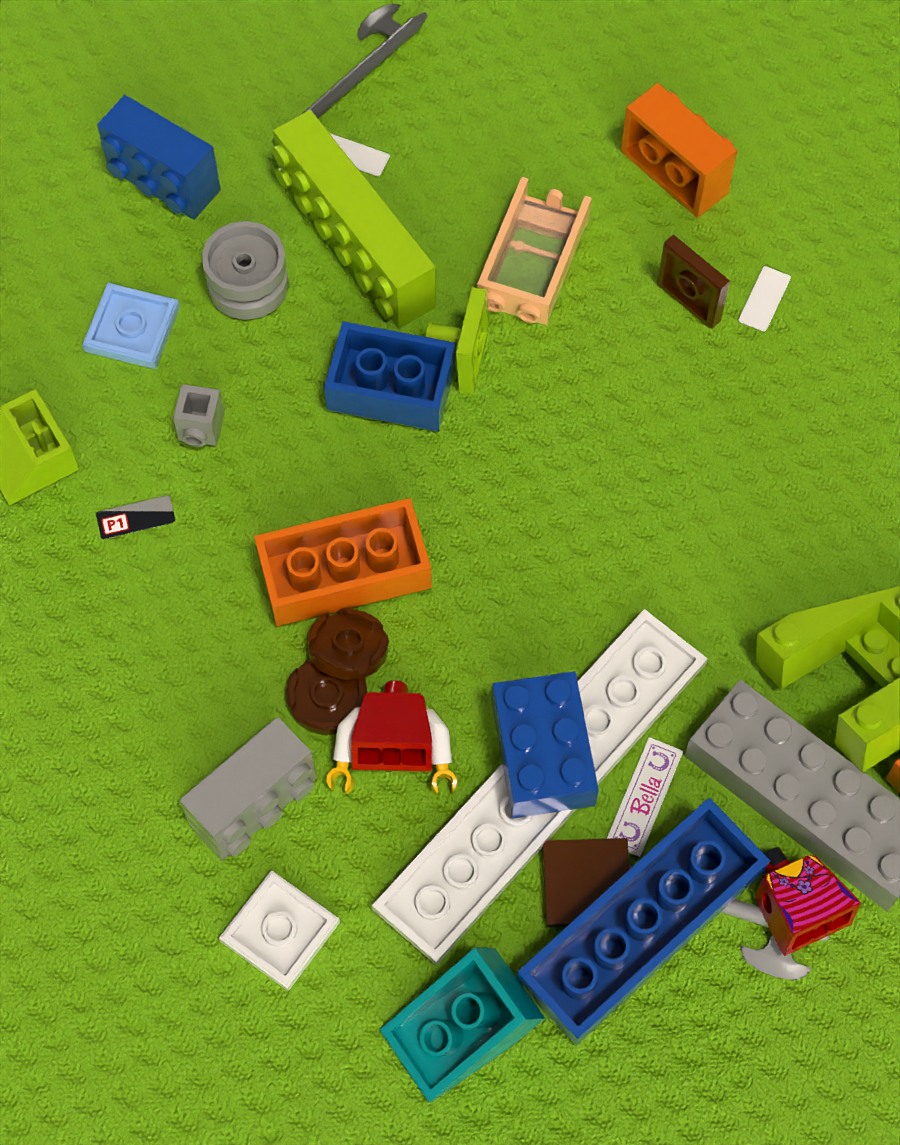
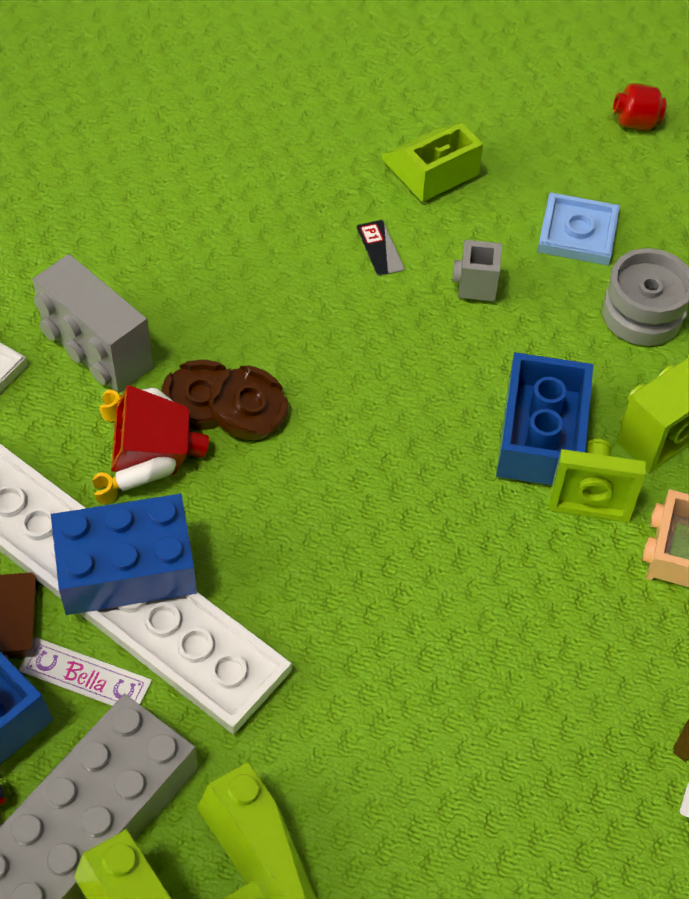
camera: 85 degrees right, 10 degrees down
(343, 562) = (331, 390): orange brick -> none

